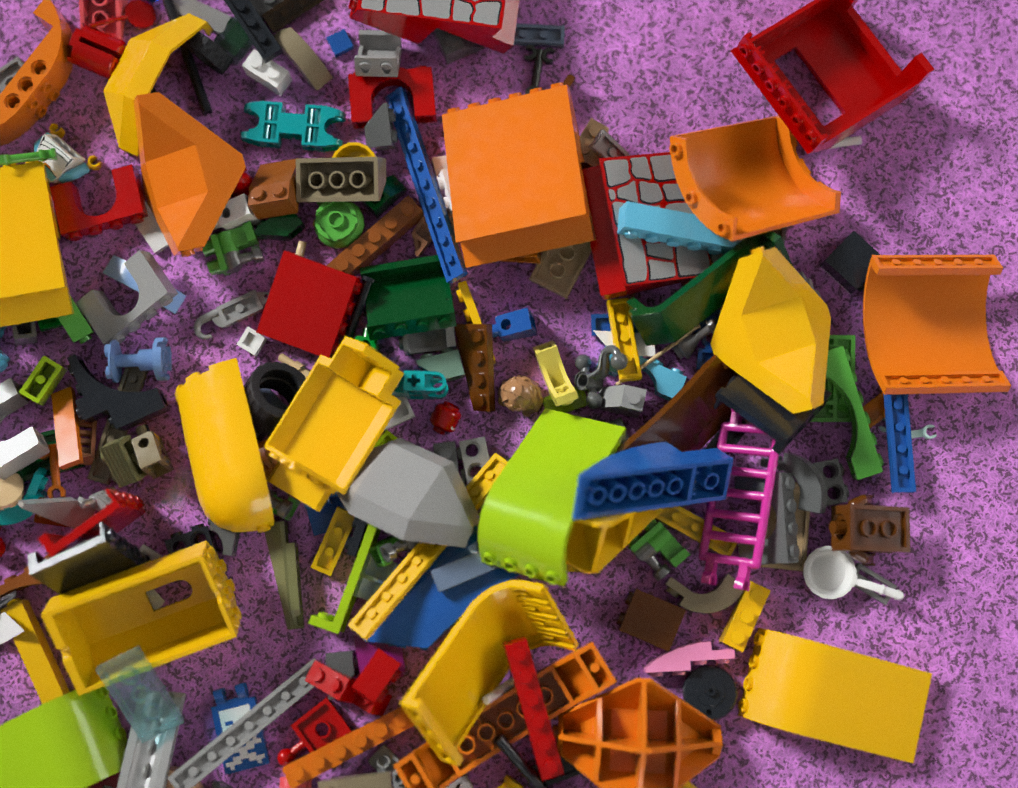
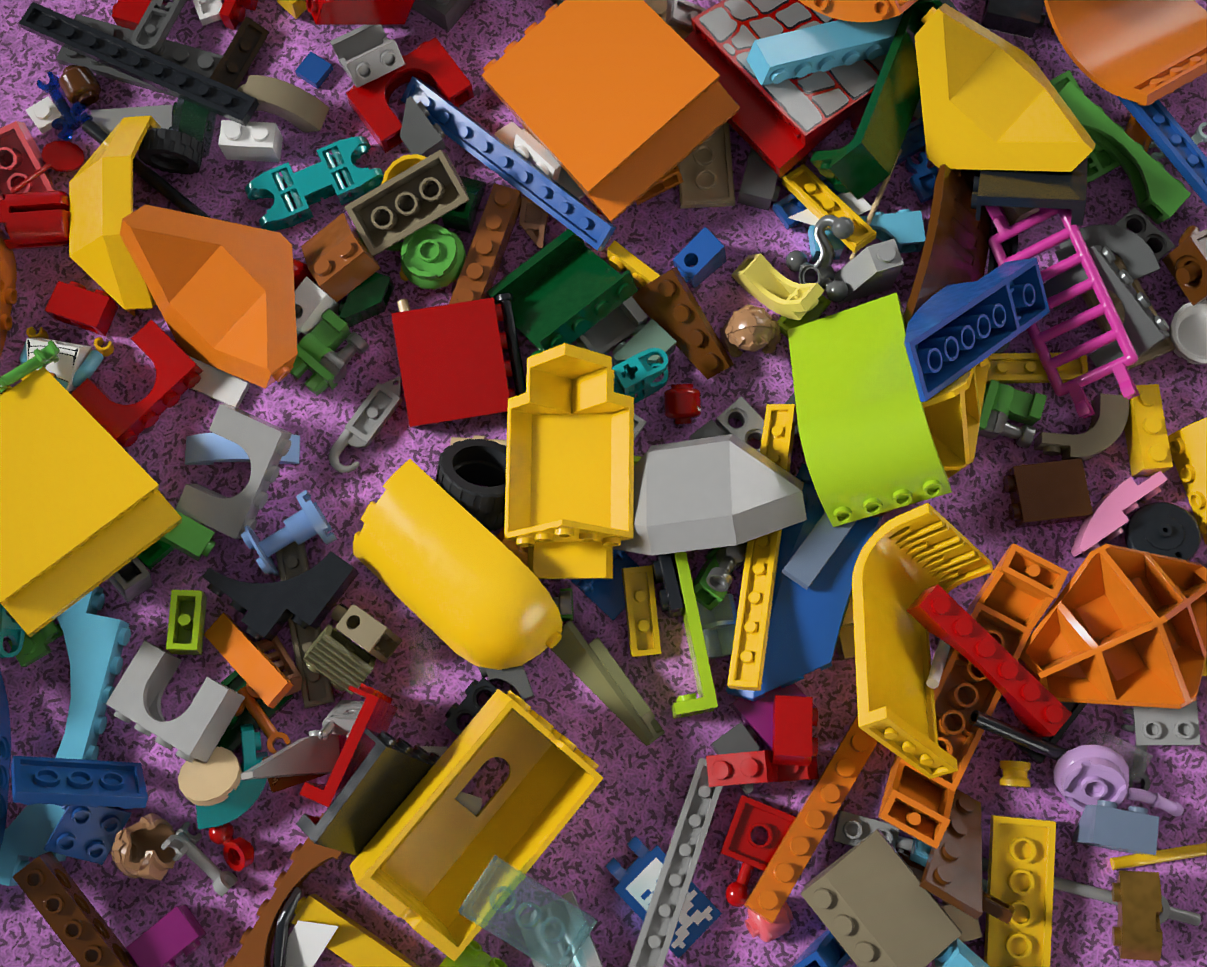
camera: 30 degrees left, 5 degrees down
(93, 128) = (82, 307): none -> red brick
(252, 341) = (409, 442): white plate -> none
(588, 295) = (758, 184): none -> dark grey brick
(688, 345) = (899, 179): light grey piece -> none

